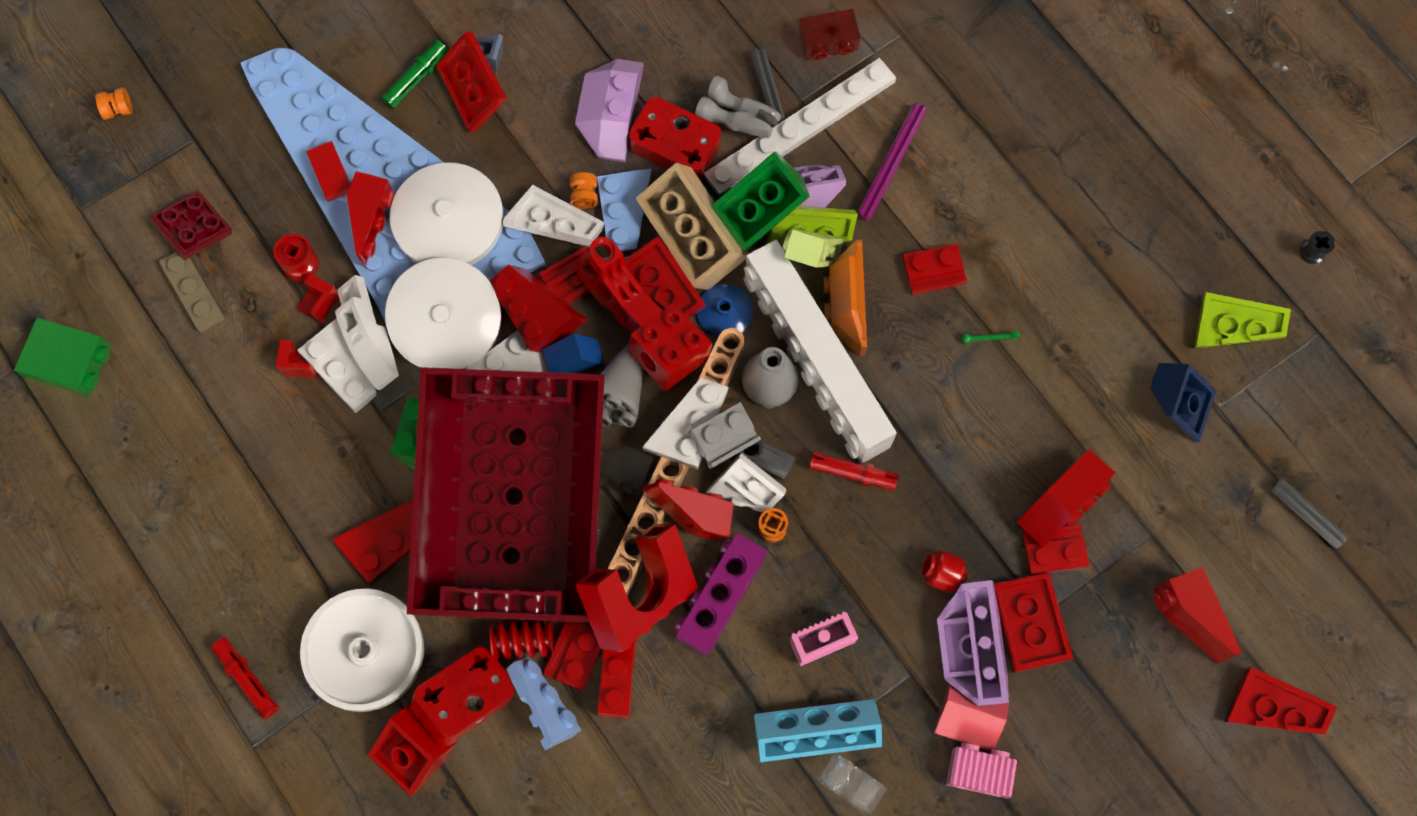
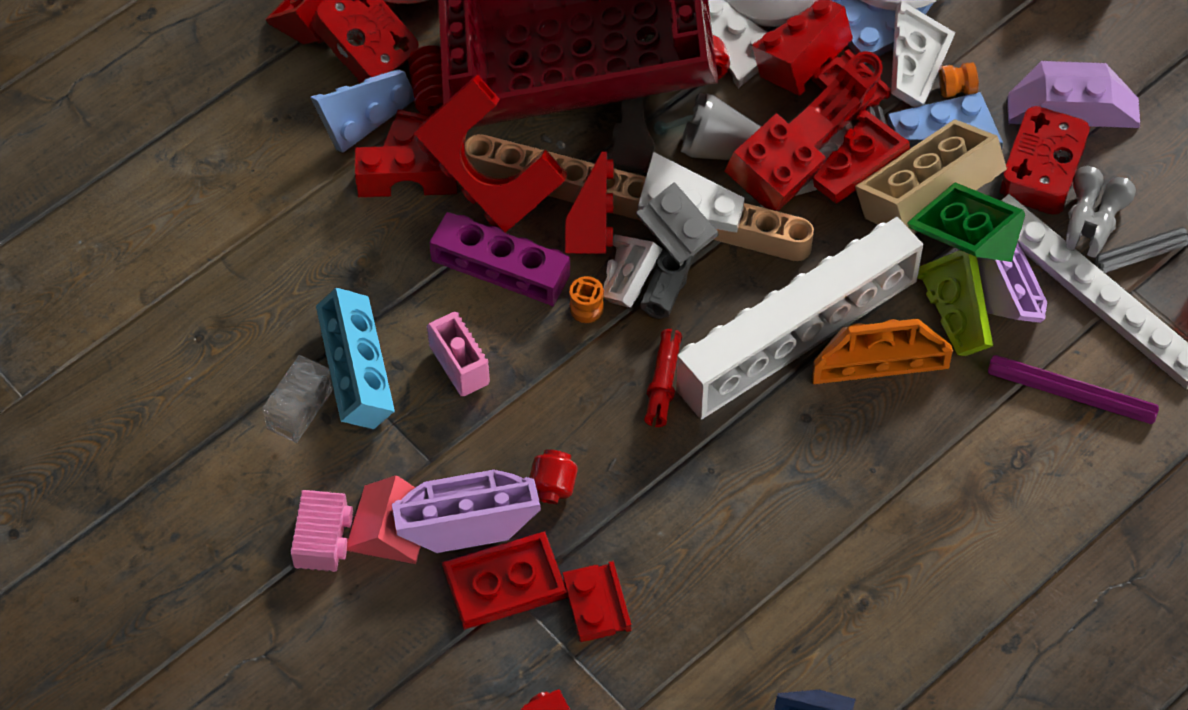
camera: 85 degrees right, 15 degrees down
(573, 355) = (757, 92): blue slope -> none
(715, 320) = (826, 235): blue dish -> none
(770, 378) = (761, 270): light grey cone -> none
(812, 248) = (922, 287): yellowish green slope -> none
(934, 269) = (938, 447): red plate -> none
(967, 338) = (854, 488): green hinge -> none
(1066, 497) = (661, 595): red wedge -> none

